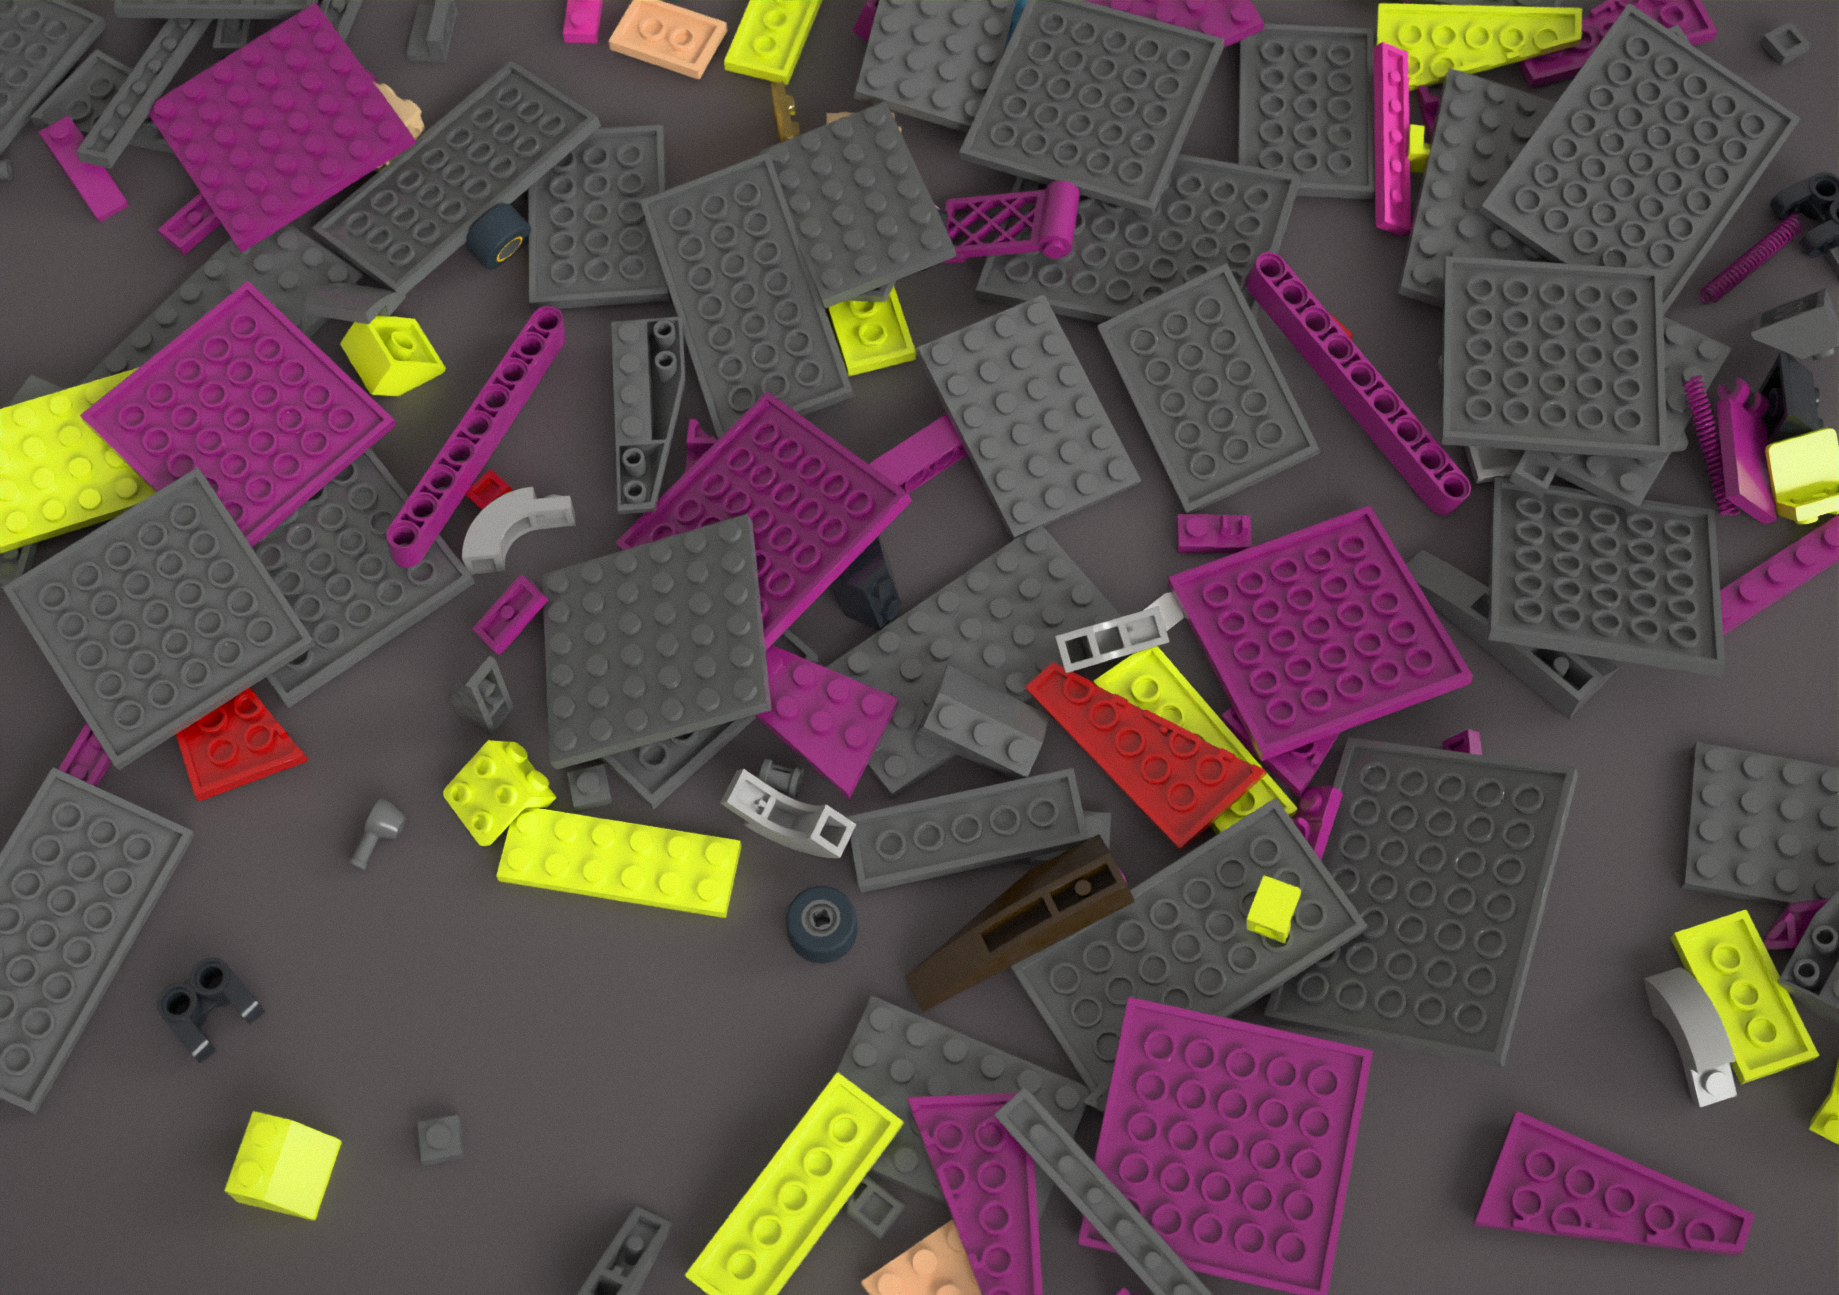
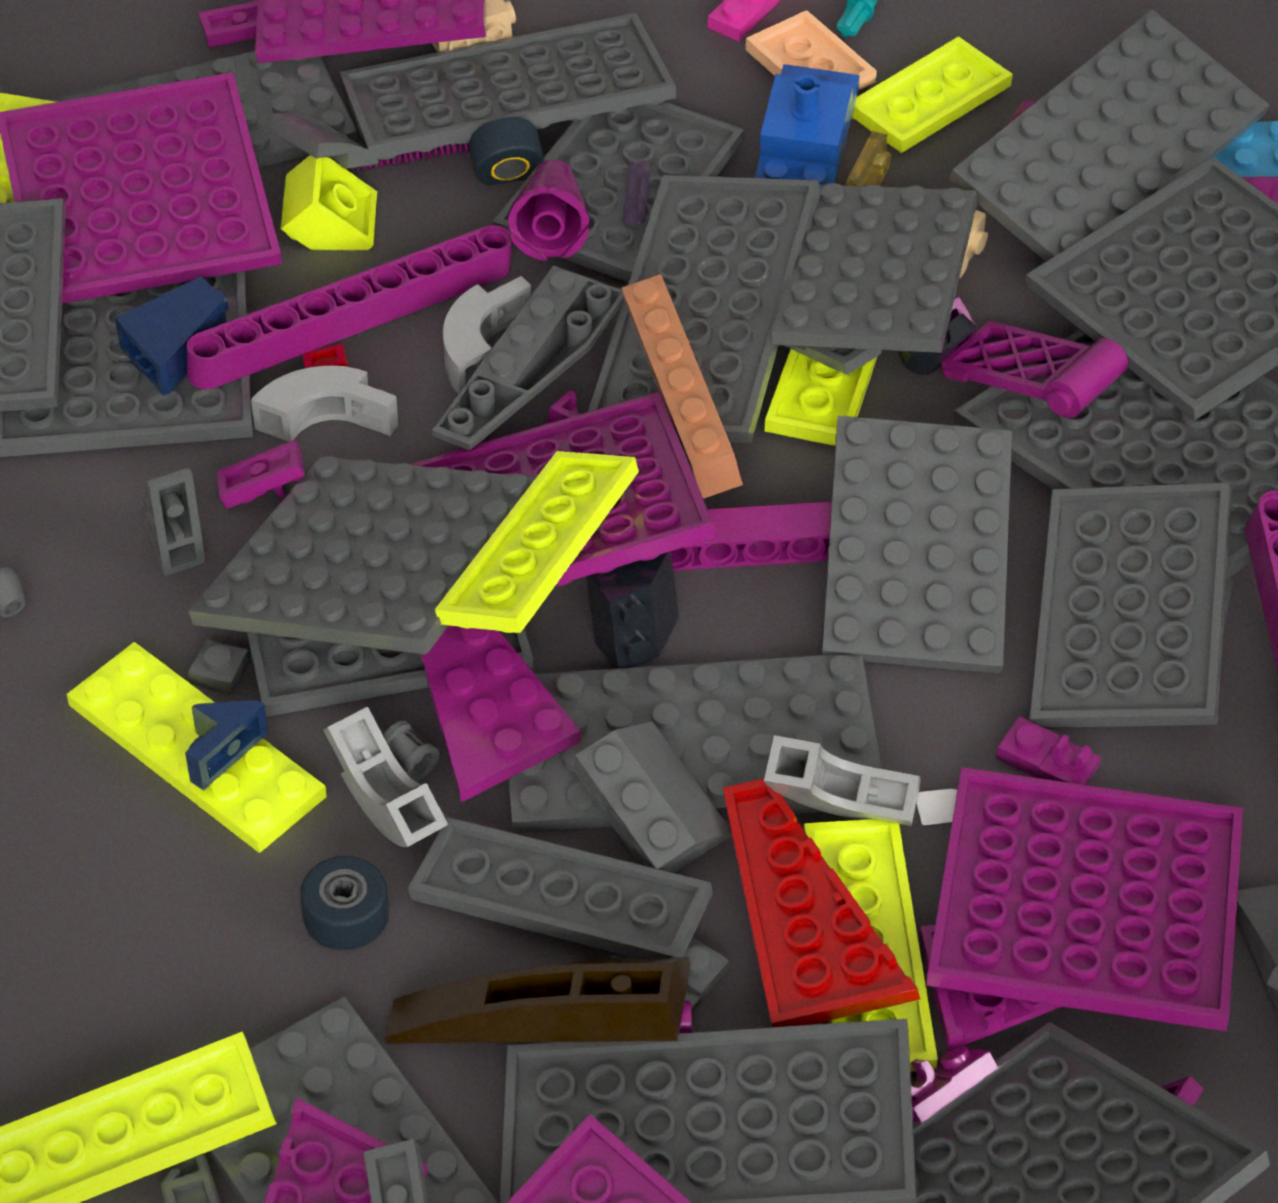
camera: 30 degrees right, 15 degrees down
(356, 532) = (159, 330): none -> dark blue slope
(496, 790) = (129, 611): neon yellow bracket -> none
(578, 275) = (549, 213): none -> magenta cone
(585, 425) = (474, 321): none -> light grey arch
(624, 223) = (636, 192): none -> clear purple axle
(651, 842) = (225, 735): none -> dark blue slope
(712, 104) = (807, 124): none -> blue brick
(780, 375) = (682, 386): none -> nougat brick
(787, 574) = (537, 542): none -> neon yellow plate
(1273, 909) = (812, 1115): neon yellow panel -> none

